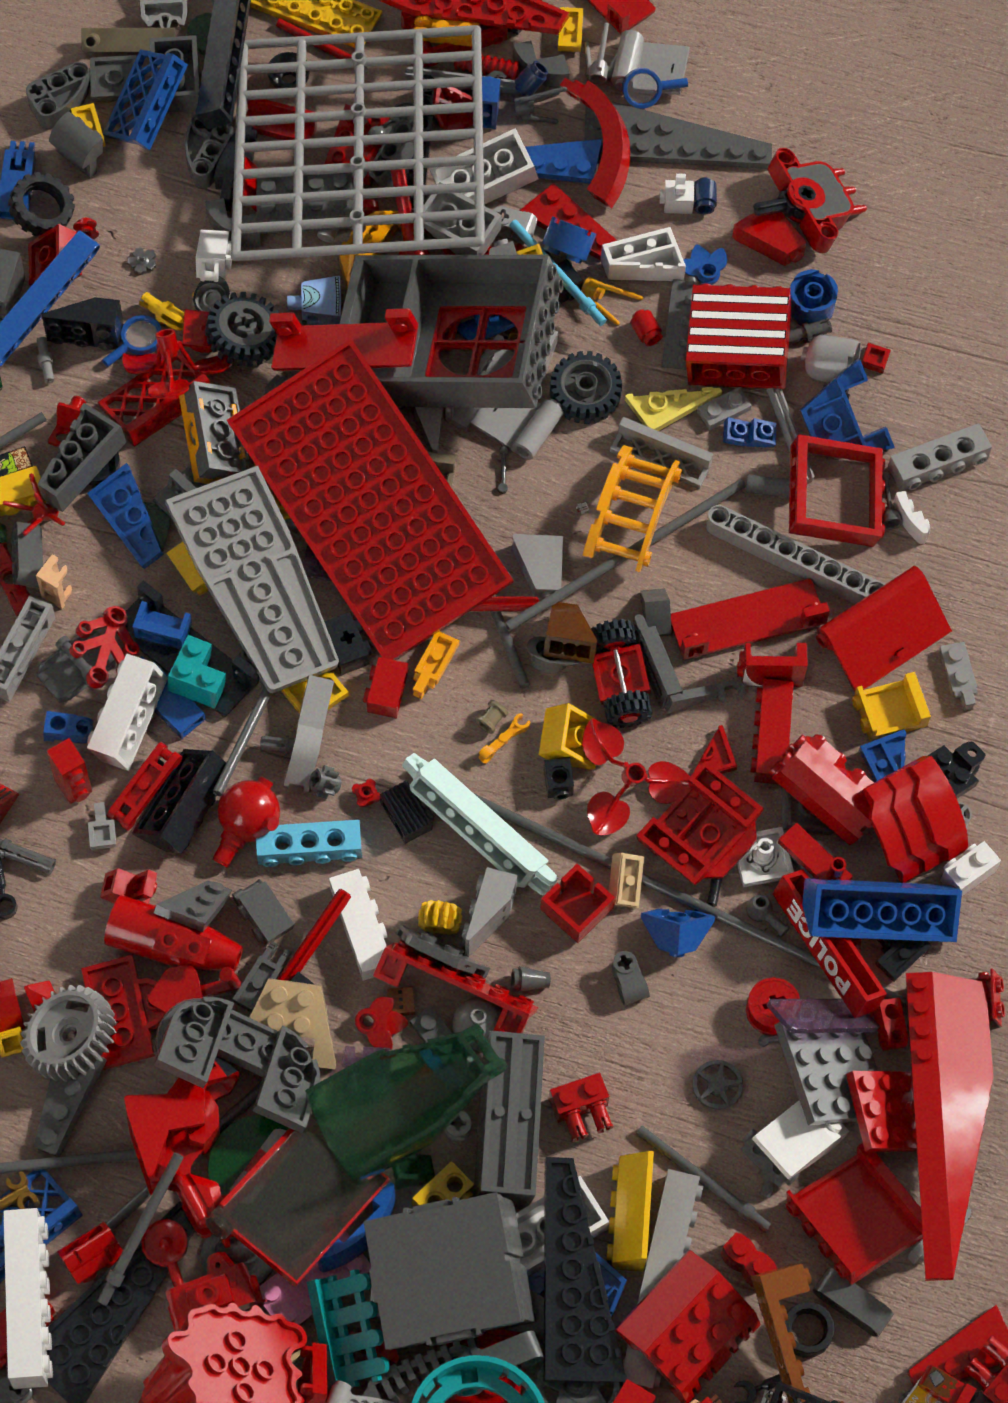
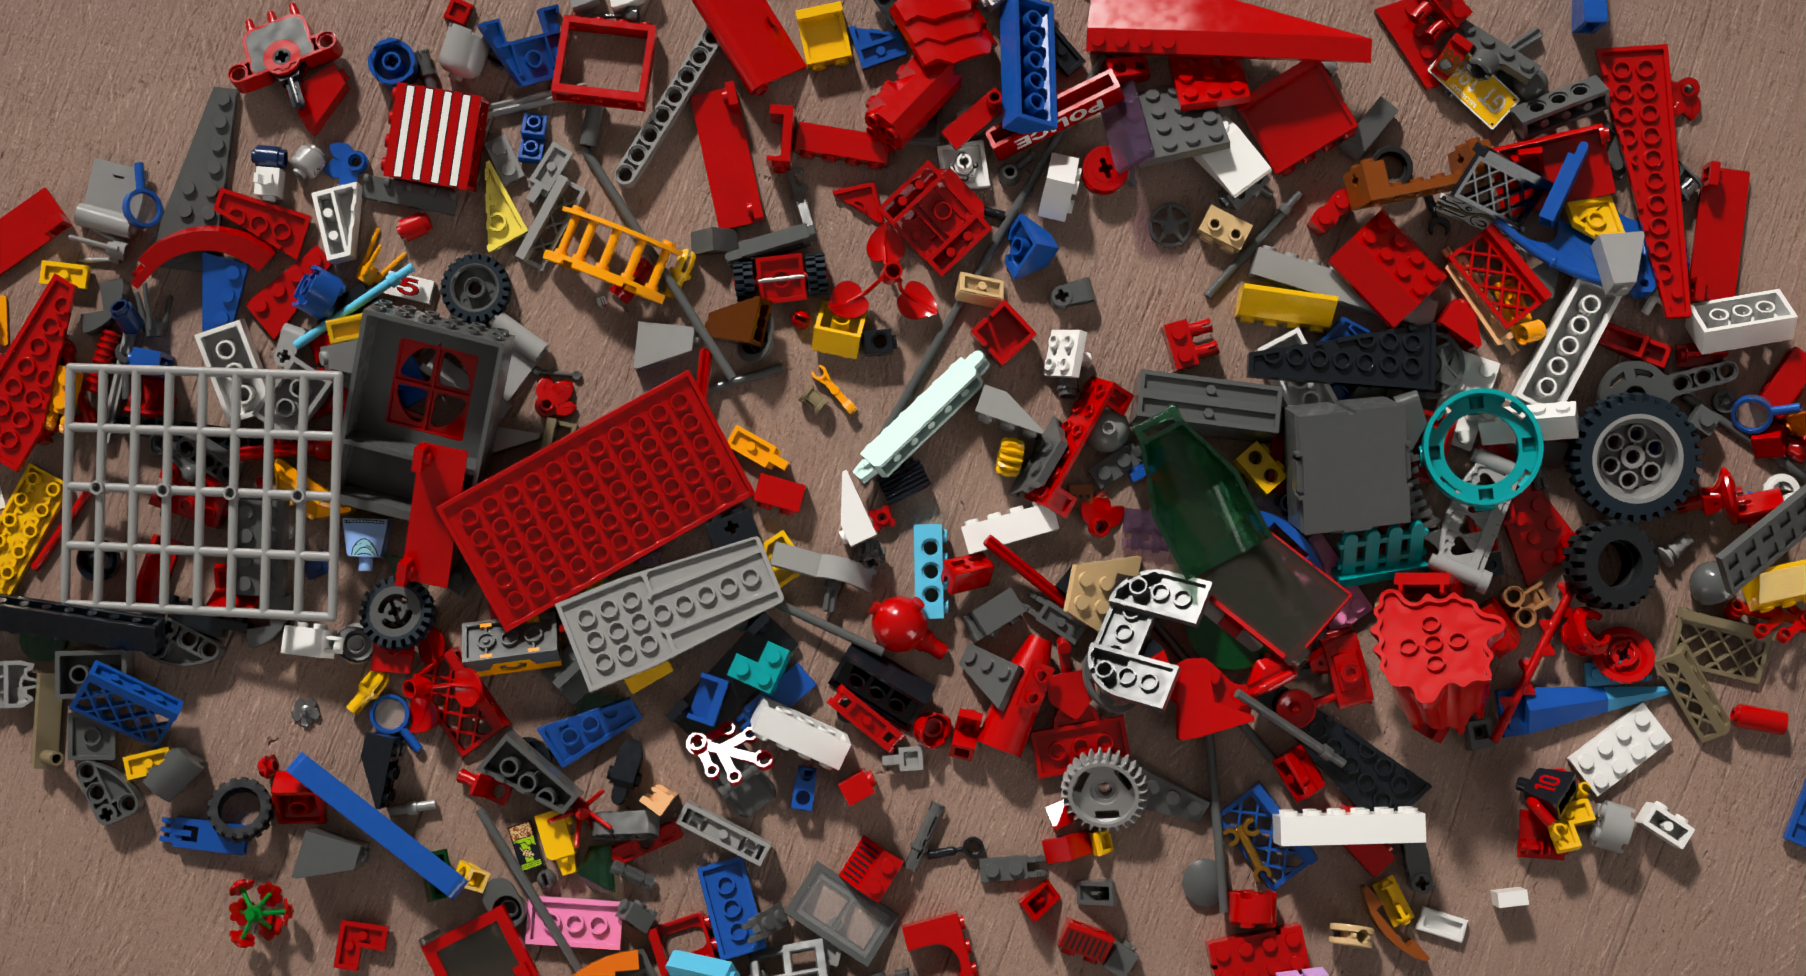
camera: 85 degrees left, 20 degrees up
(84, 552) = (625, 772): none -> black hinge
(133, 852) = (932, 729): none -> red hair
(293, 265) = (316, 568): none -> dark blue plate
(308, 877) = (967, 572): none -> red hinge
(369, 756) = (854, 519): none -> white slope
(479, 469) = (555, 394): none -> red plate
(559, 972) = (1066, 354): none -> white plate
(581, 331) = (413, 289): none -> white tile
(584, 700) = (799, 324): none -> red hinge
(610, 533) = (641, 274): none -> red hinge
(616, 577) = (678, 275): none -> yellow arm
(639, 196) = (272, 223): none -> red wing
(703, 228) = (307, 162): none -> light grey head
(717, 1142) = (1224, 230): none -> tan brick
(724, 450) = (547, 172): none -> light grey hinge
(748, 952) = (1060, 184): none -> white brick

